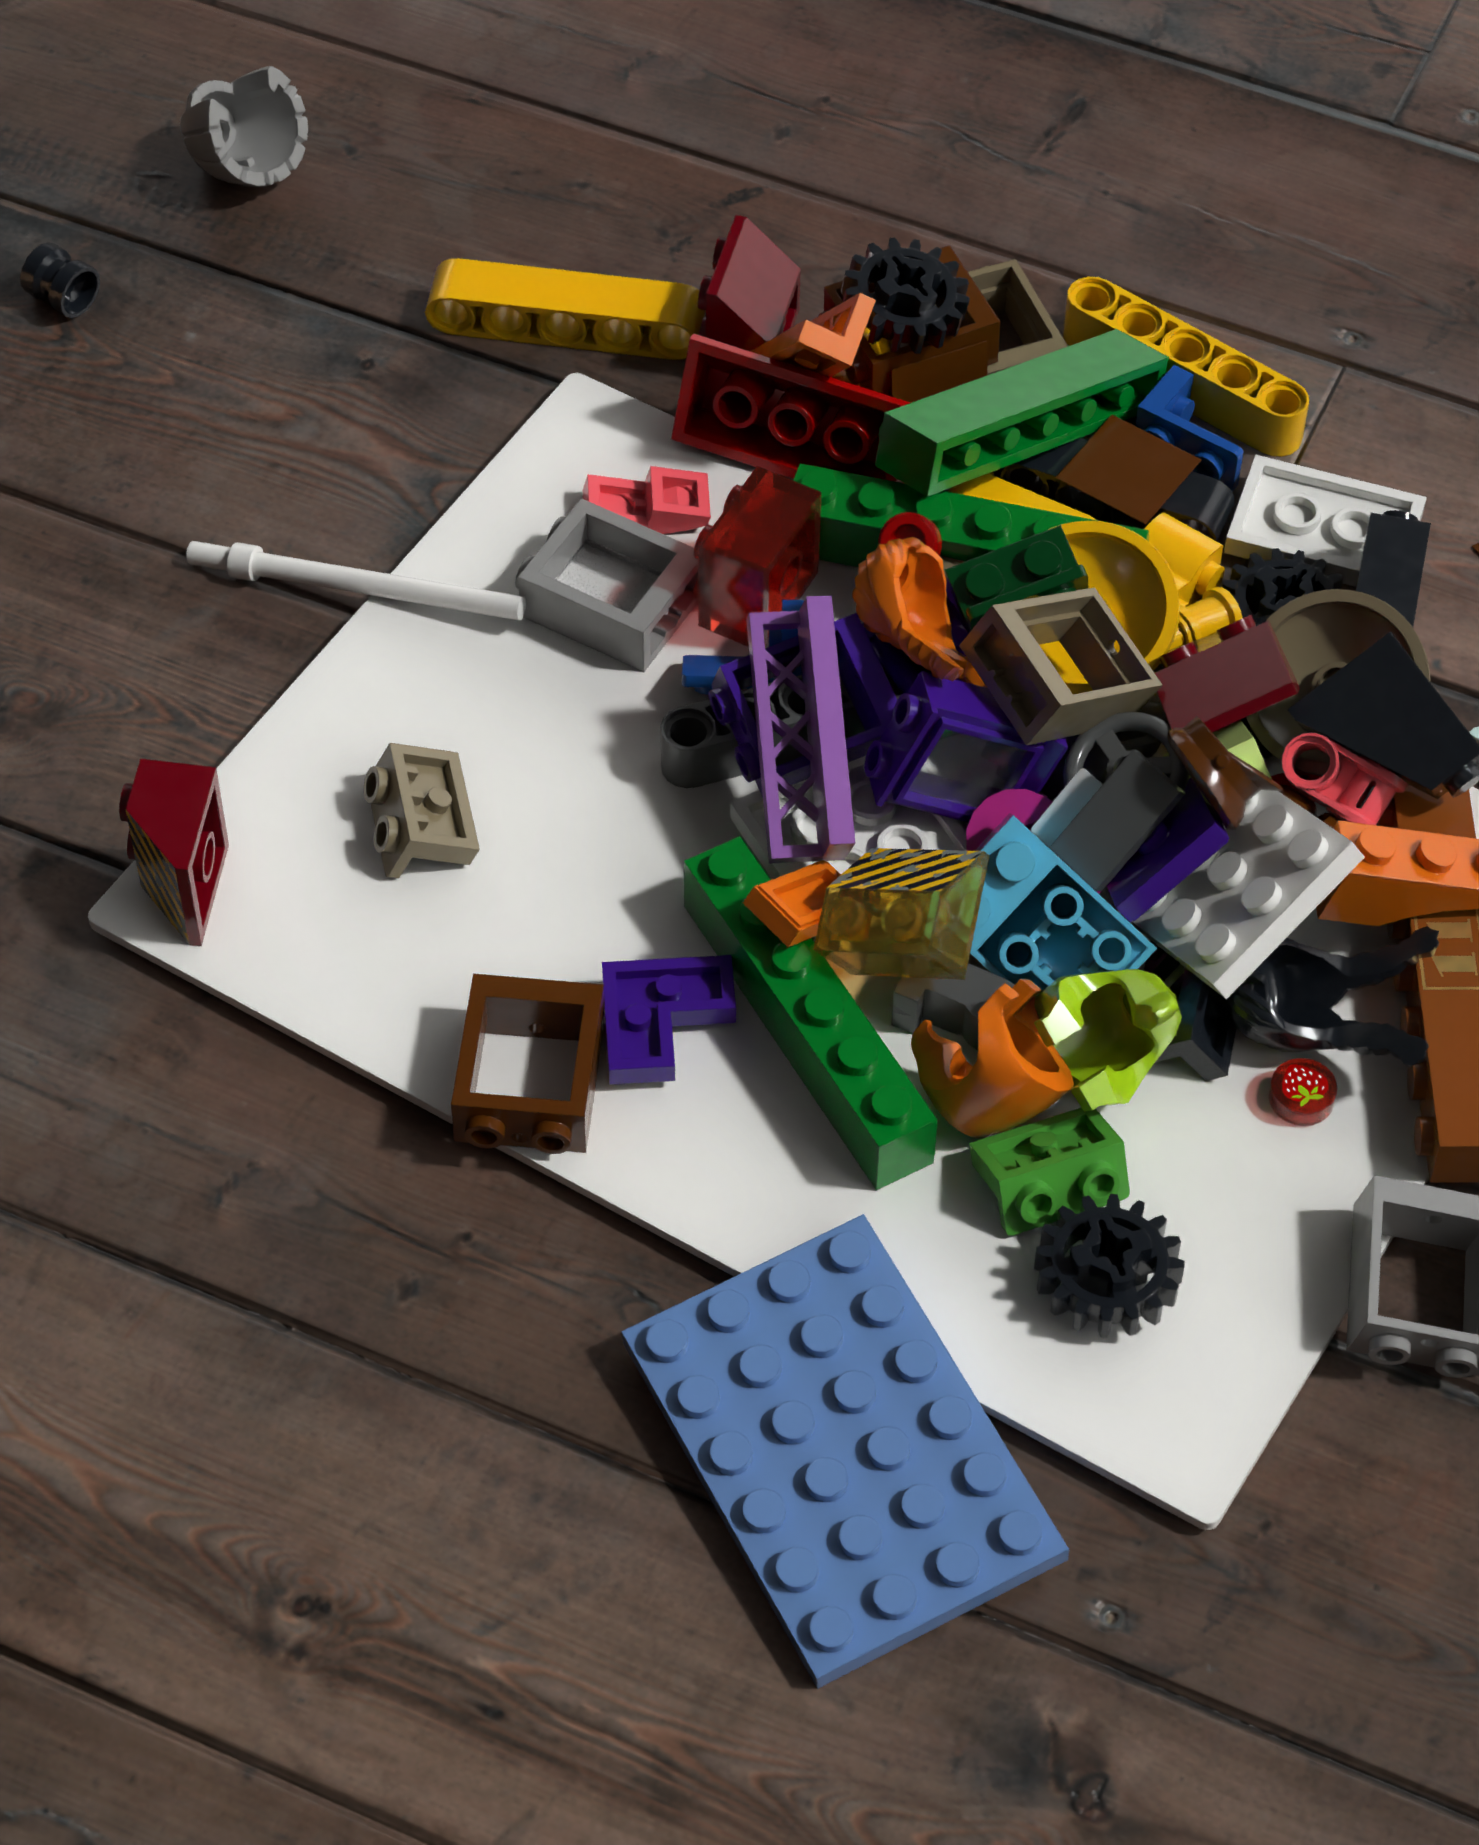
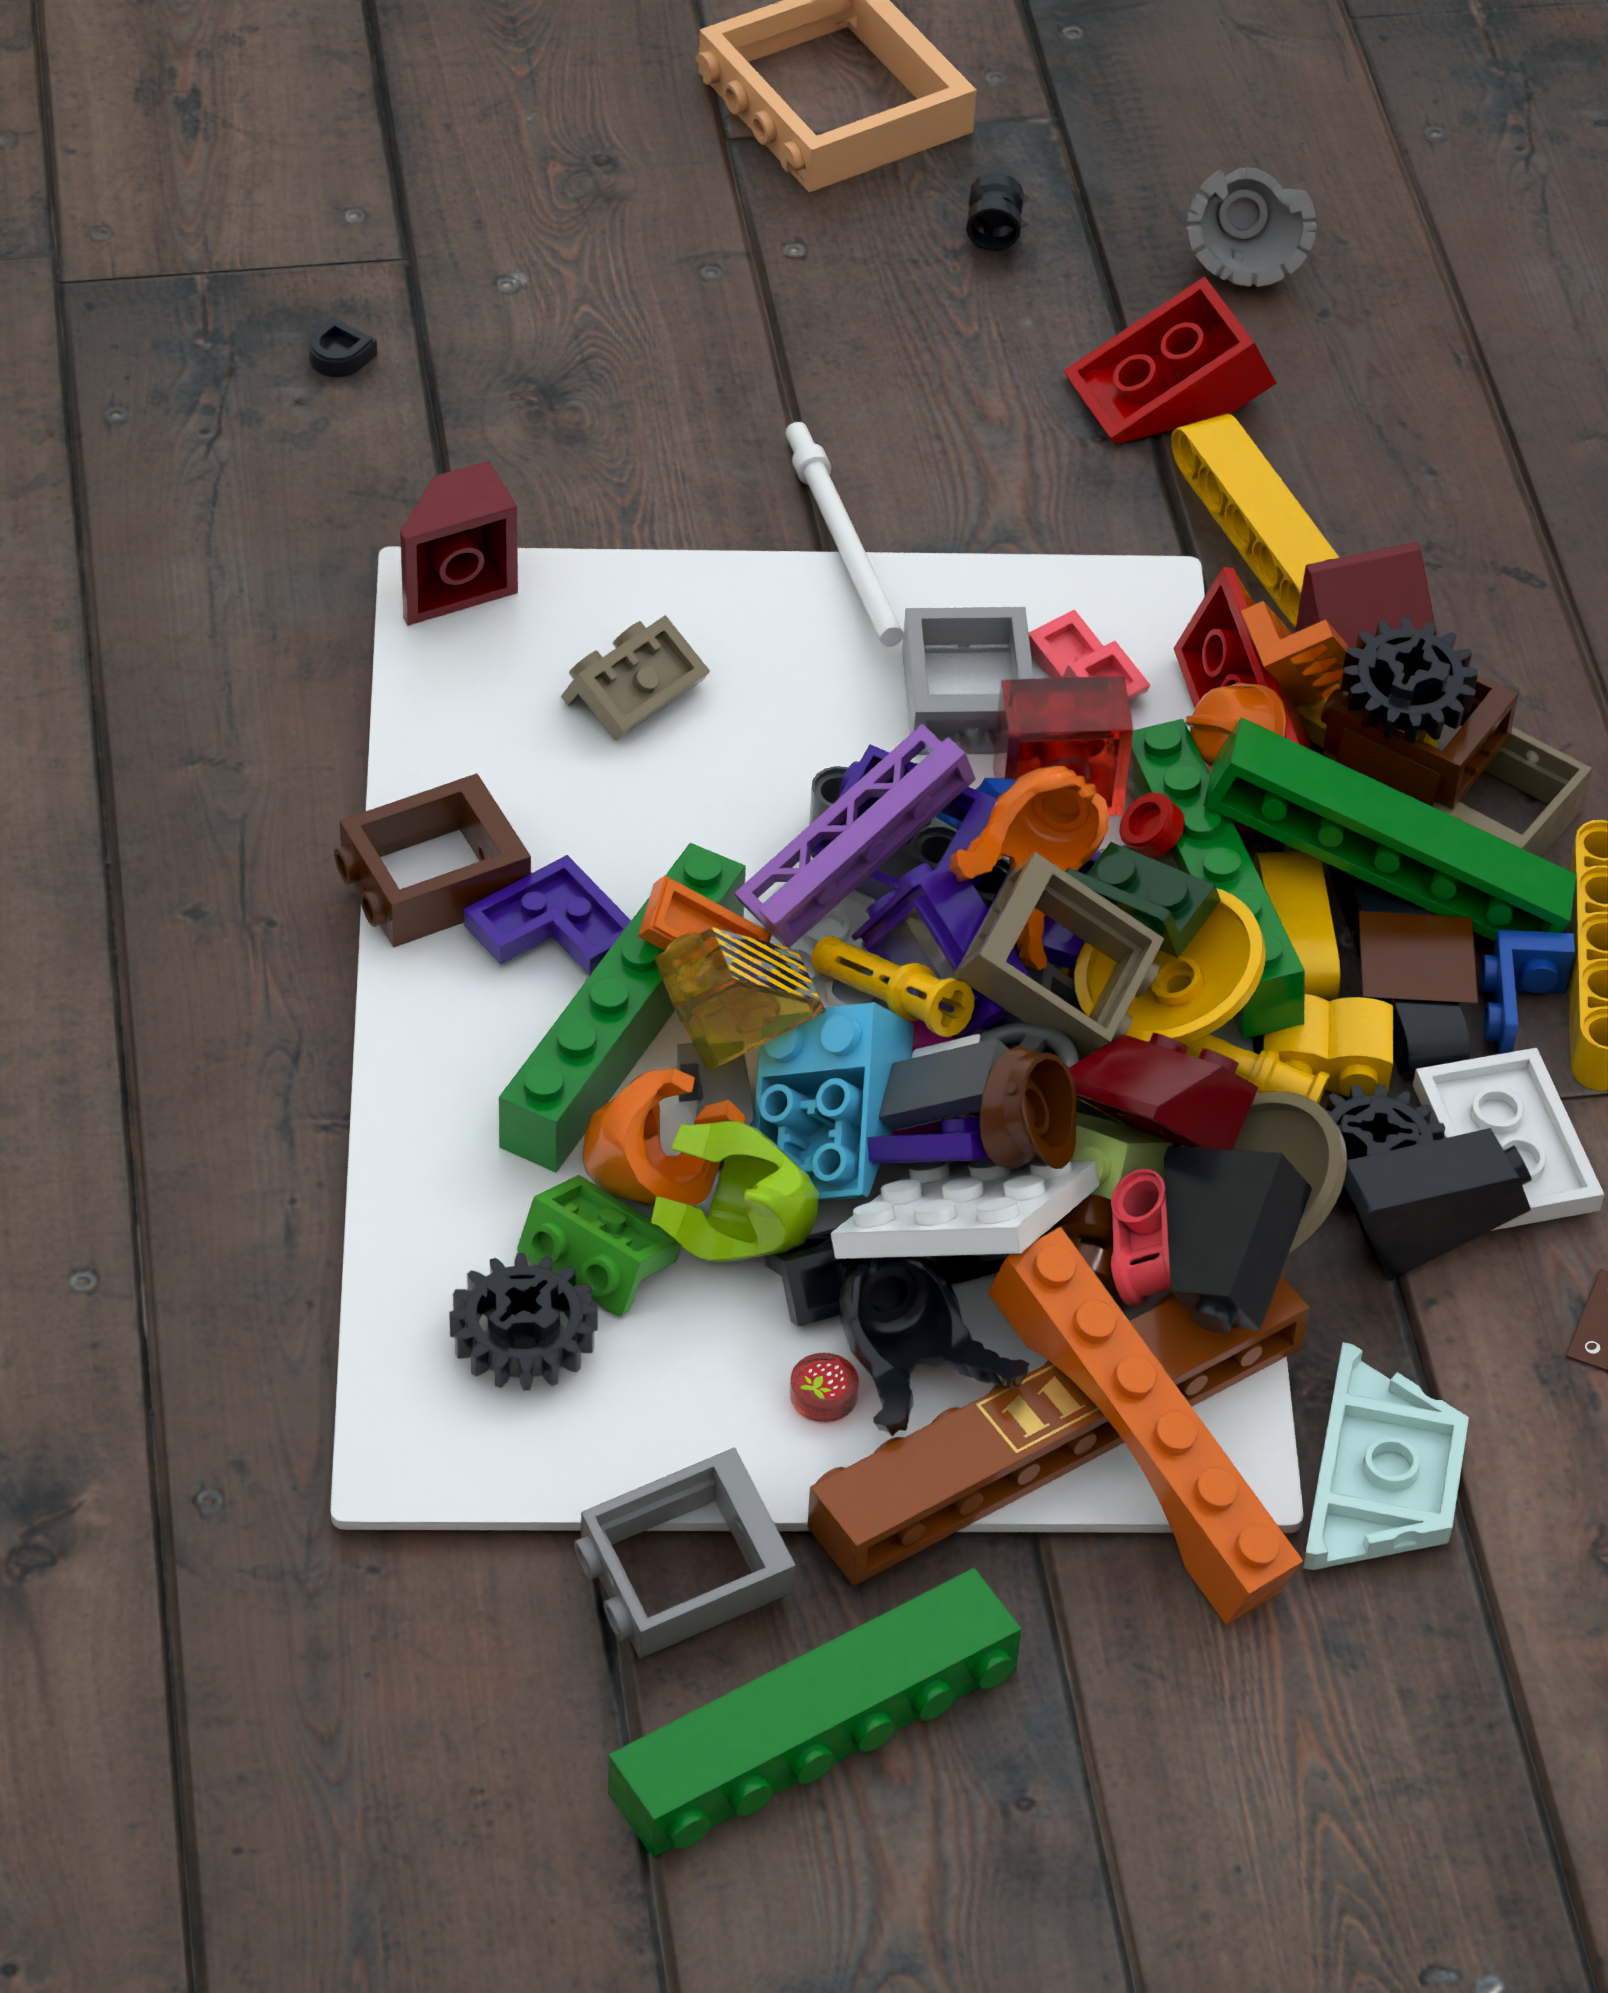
camera: 55 degrees right, 5 degrees down
(351, 268) = (1172, 368): none -> red slope
(834, 430) = (1224, 706): none -> orange piece
(843, 1450) = (229, 1239): medium blue plate -> none
(993, 800) = (844, 963): none -> yellow pin

